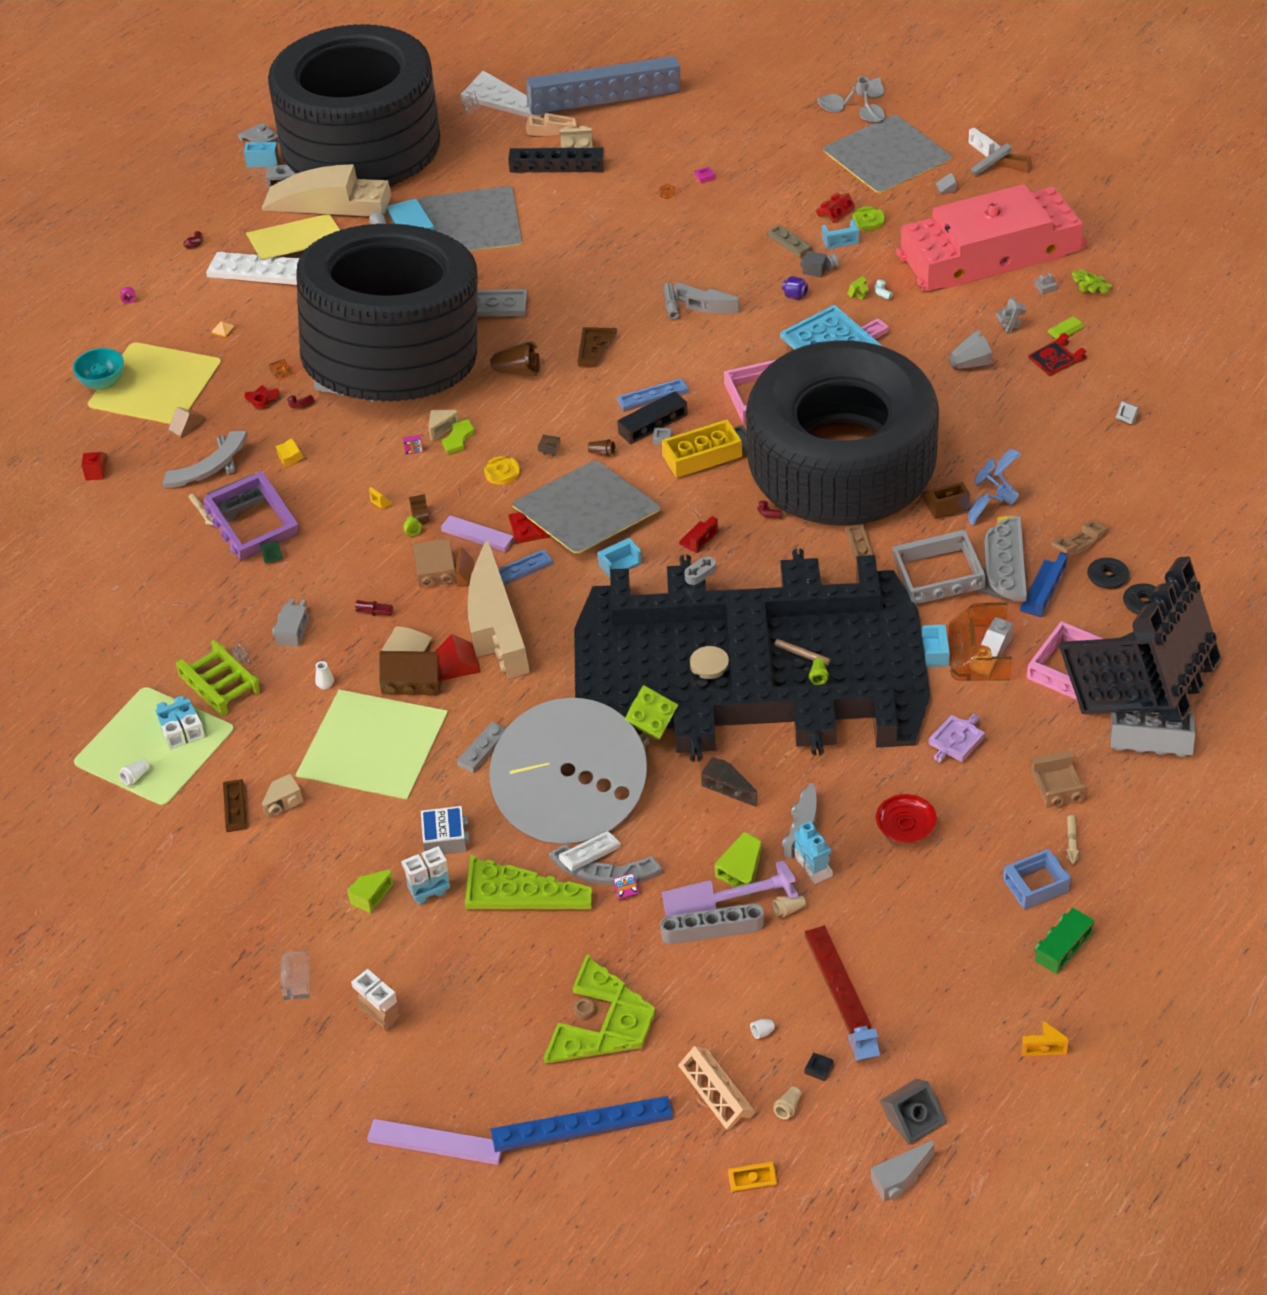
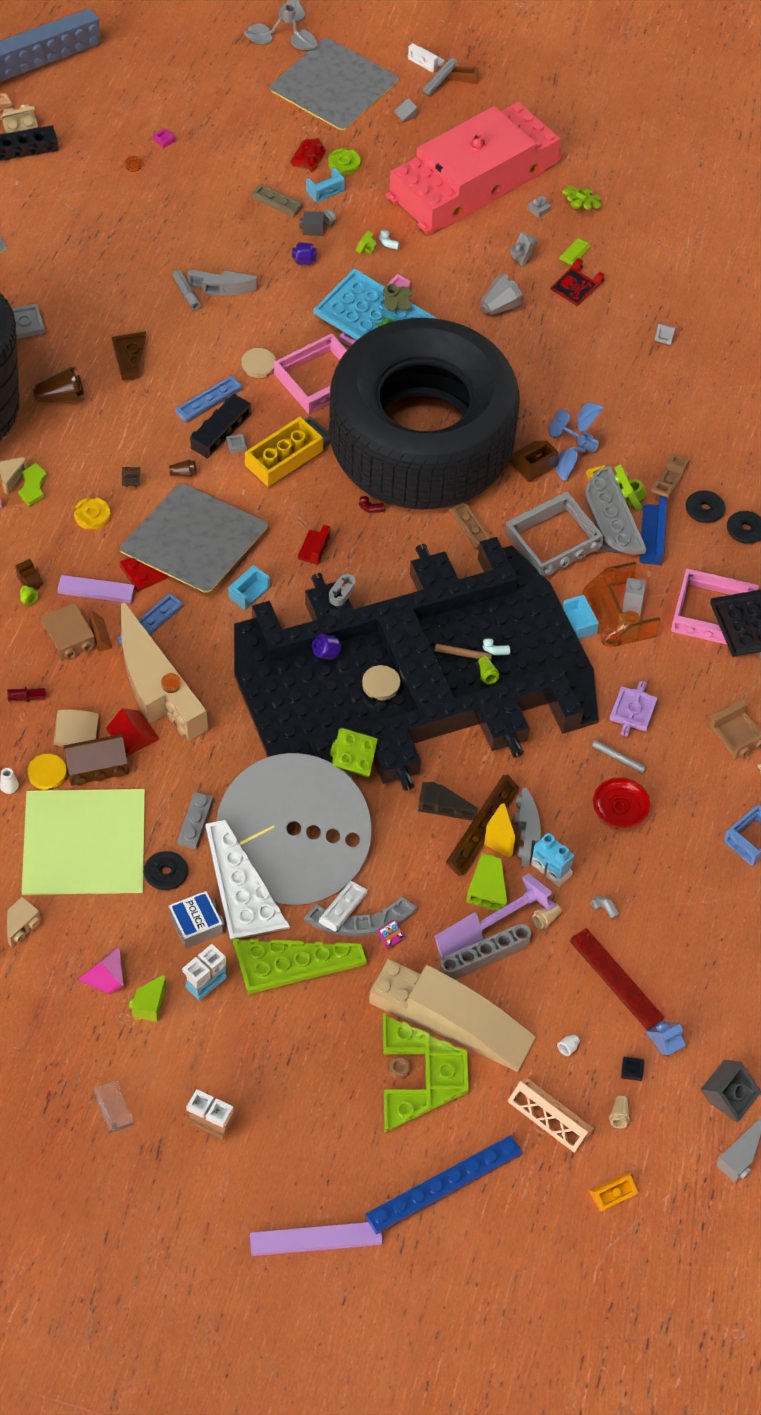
camera: 25 degrees left, 10 degrees up
(339, 857) = (106, 973): none -> dark pink slope
(363, 677) = (47, 771): none -> yellow tile
(423, 782) = (165, 881): none -> black wheel
(496, 819) = (243, 895): none -> white wing
(501, 617) = (171, 683): none -> clear orange tile
(655, 970) = (451, 1012): none -> tan slope
(667, 619) = (326, 646): none -> dark purple head
(711, 372) = (258, 362): none -> tan tile
(758, 809) = (475, 834): none -> reddish brown plate
(768, 816) = (500, 832): none -> yellow slope
(835, 656) = (495, 650): none -> light aqua arm
(853, 908) = (605, 903): none -> light grey arm
(865, 333) = (397, 297): none -> olive plate
(924, 779) = (618, 756): none -> light grey bar
(1035, 543) = (628, 487): none -> lime plate

